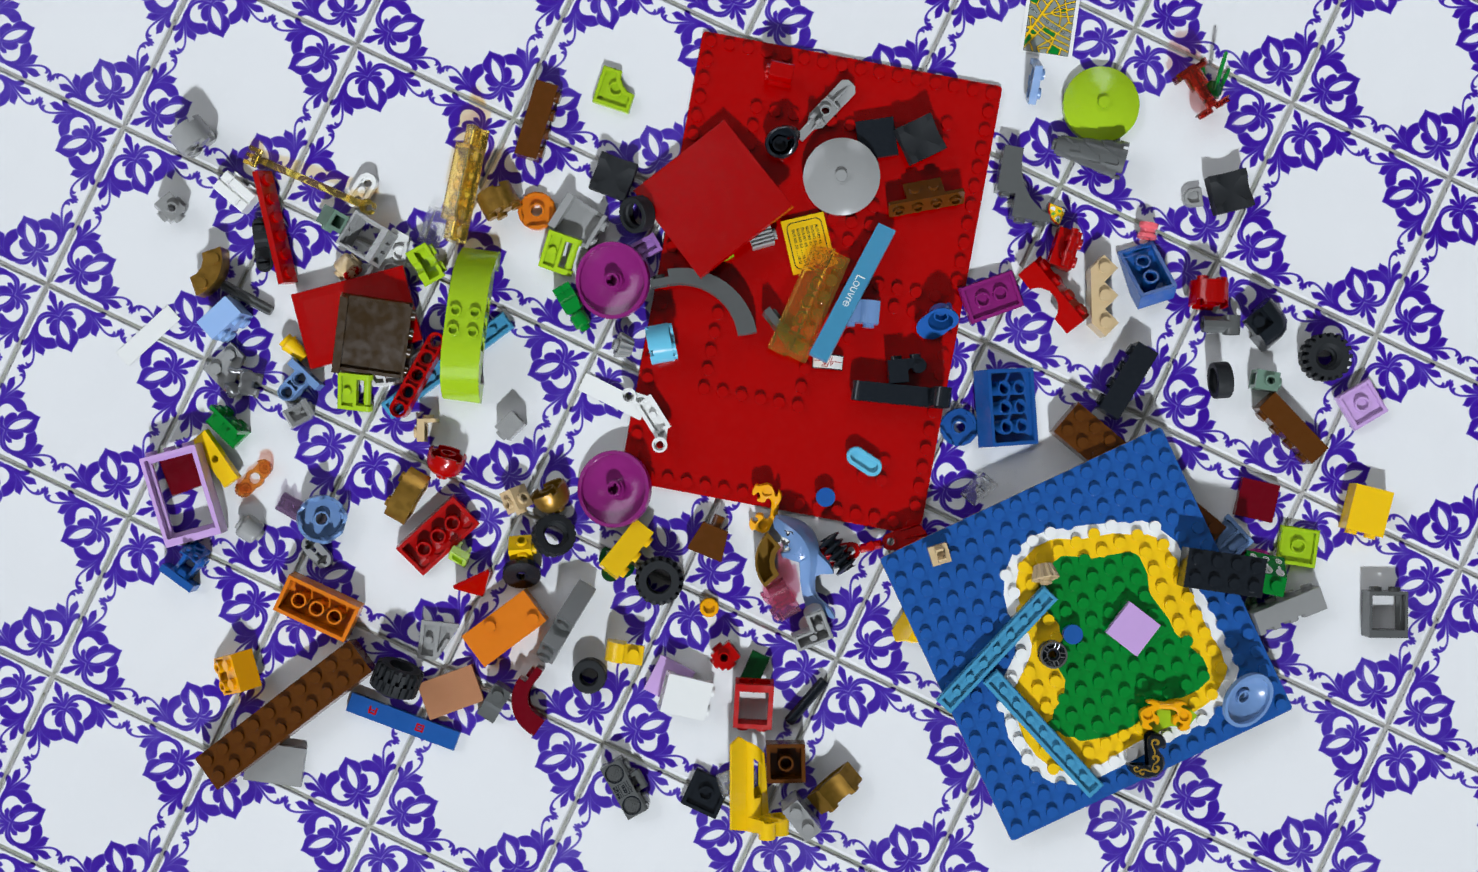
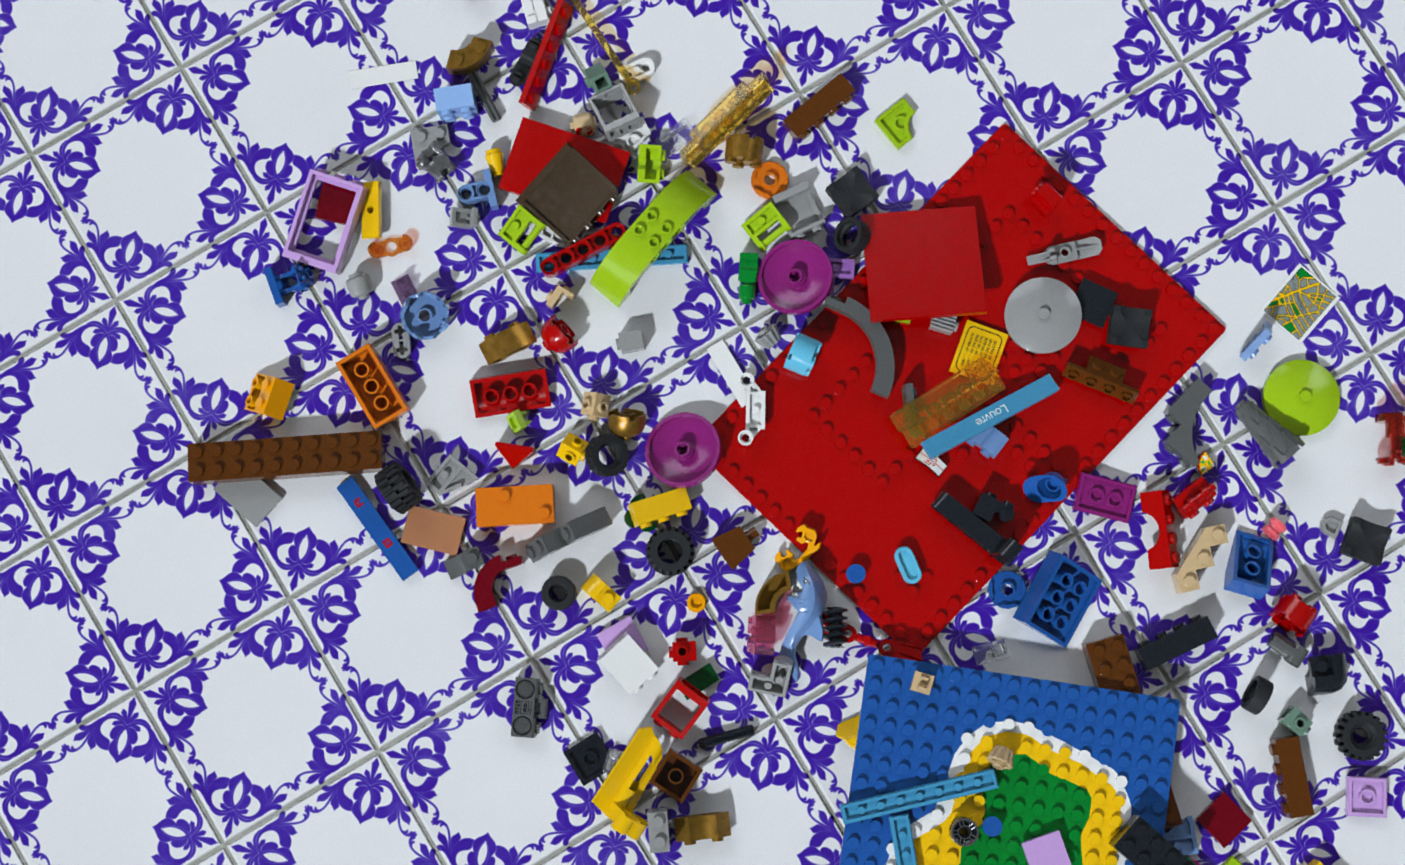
camera: 40 degrees right, 5 degrees down
(227, 425) = (398, 189): green bracket -> none
(514, 579) = (555, 477): black tile -> none
(778, 144) = (1007, 254): black hair -> none

